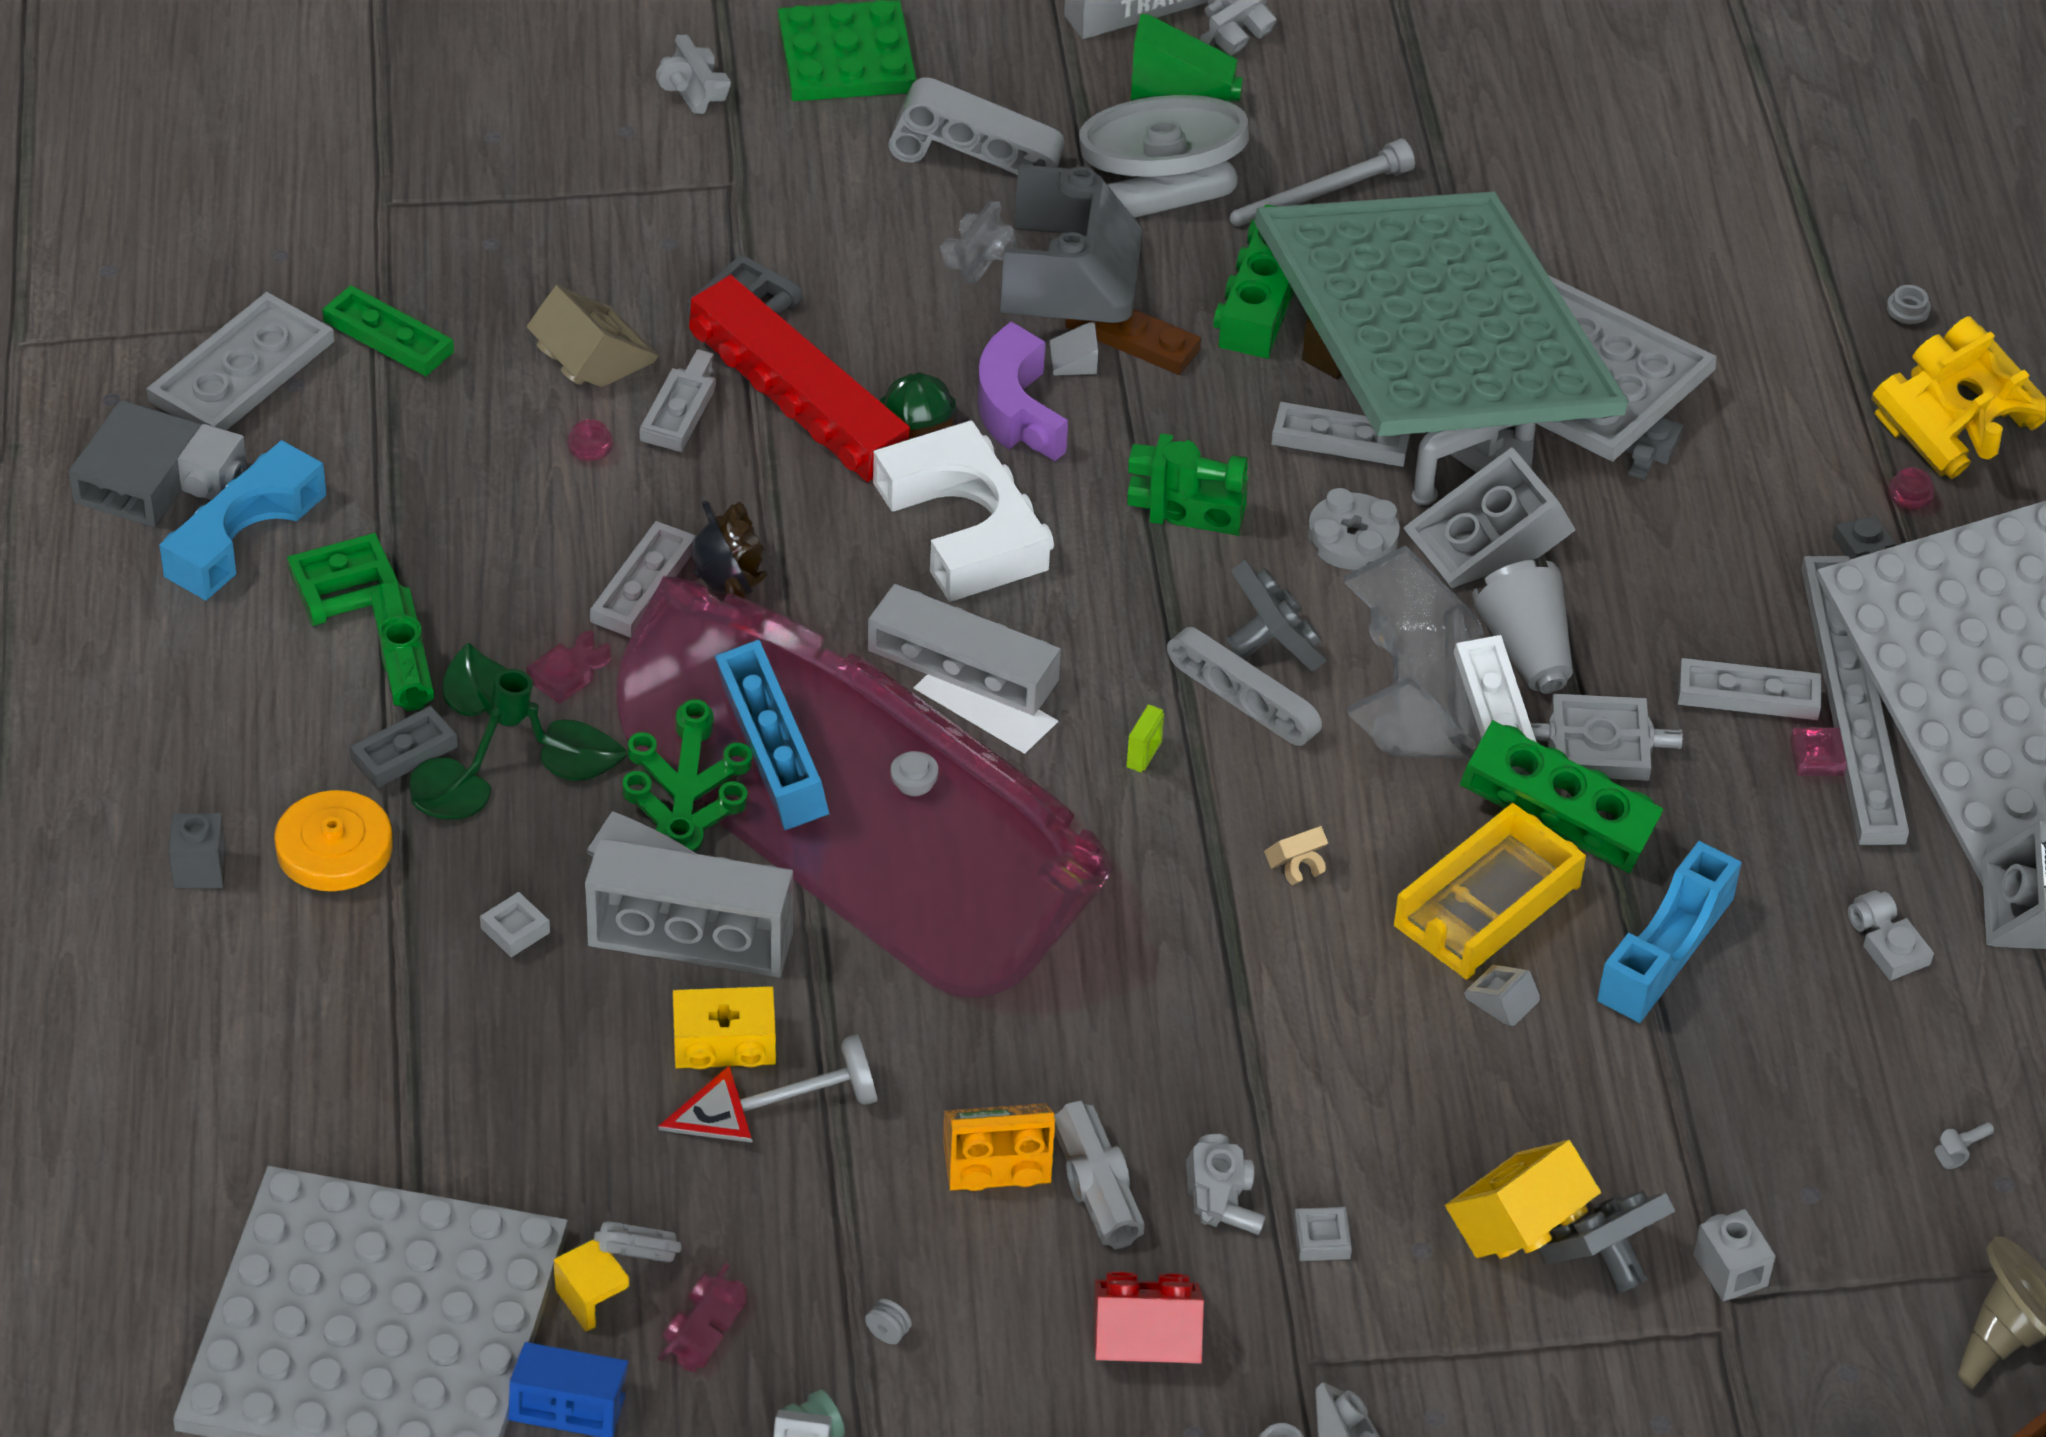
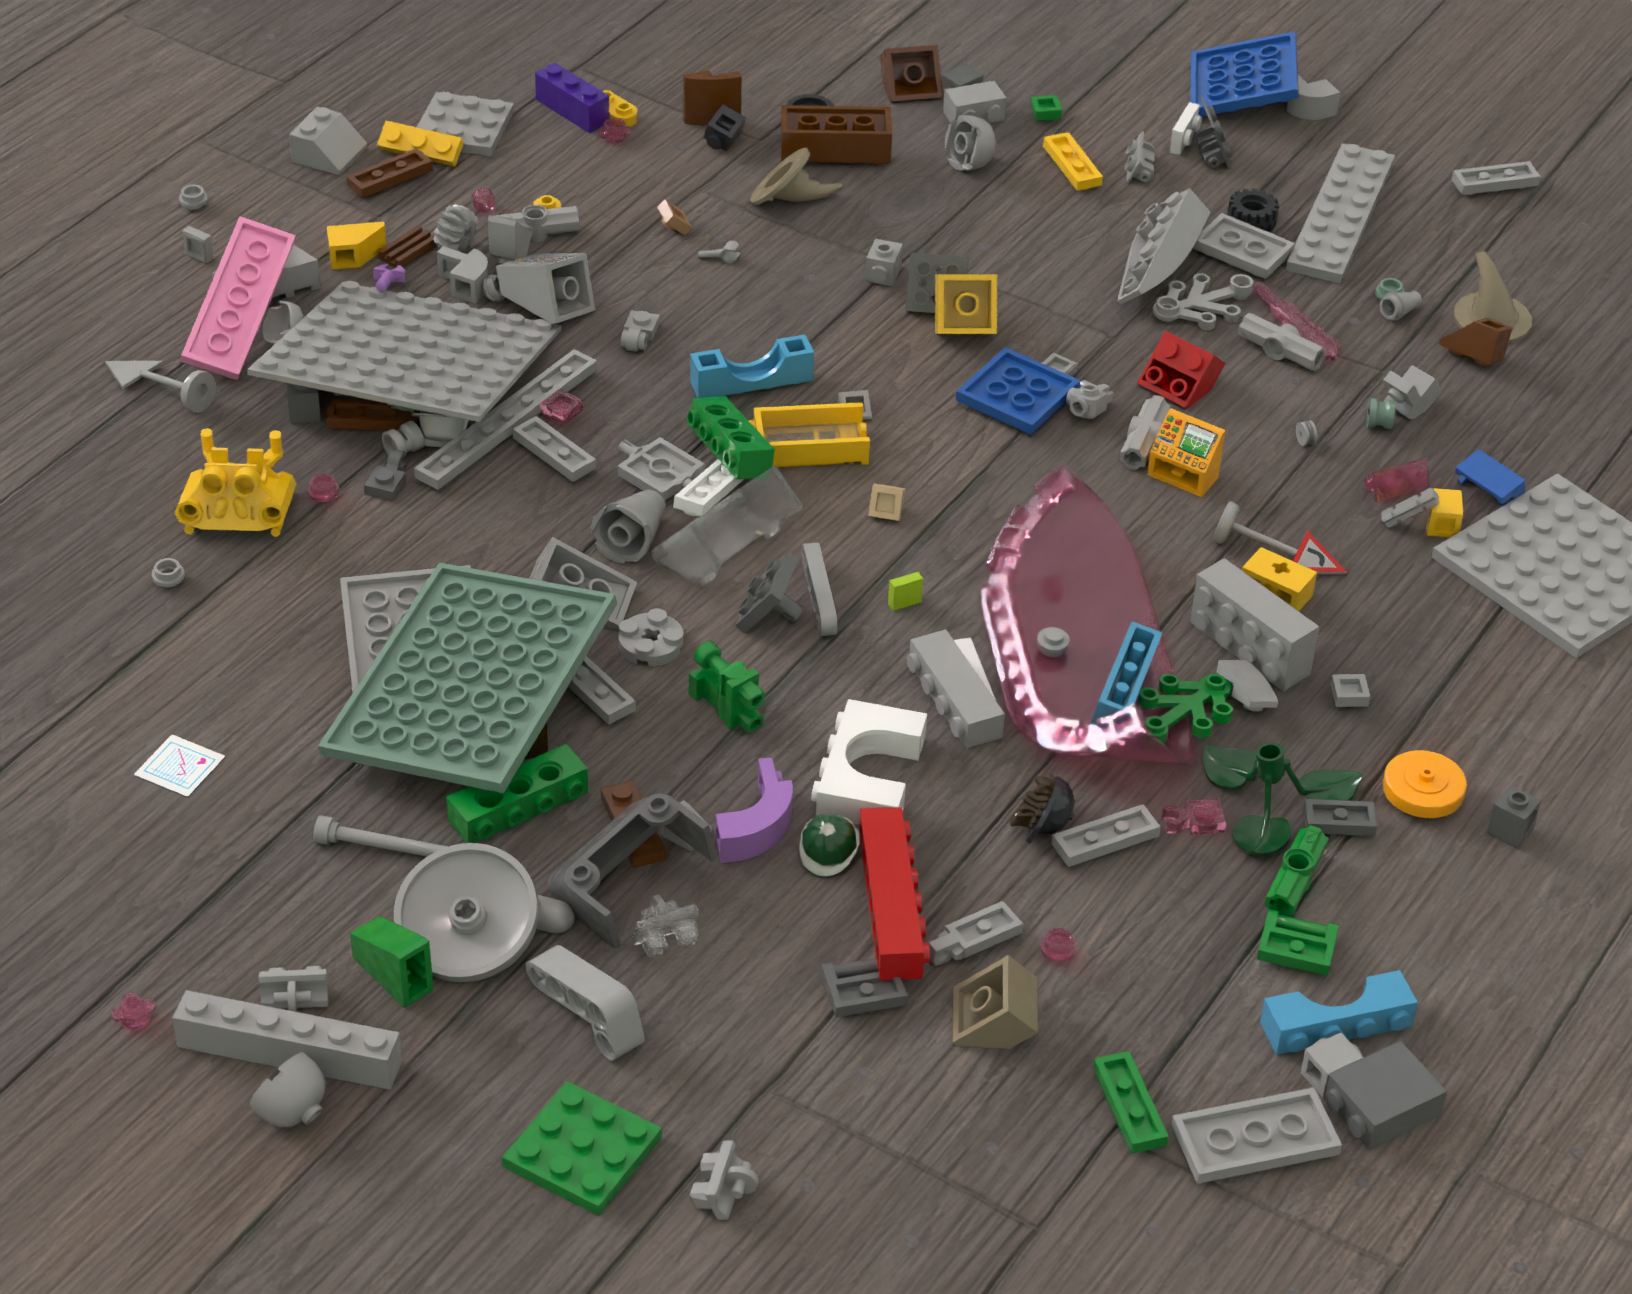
camera: 140 degrees left, 5 degrees down
(1327, 1143) = (1017, 390): none -> blue plate
(1618, 154) = (179, 765): none -> white sticker

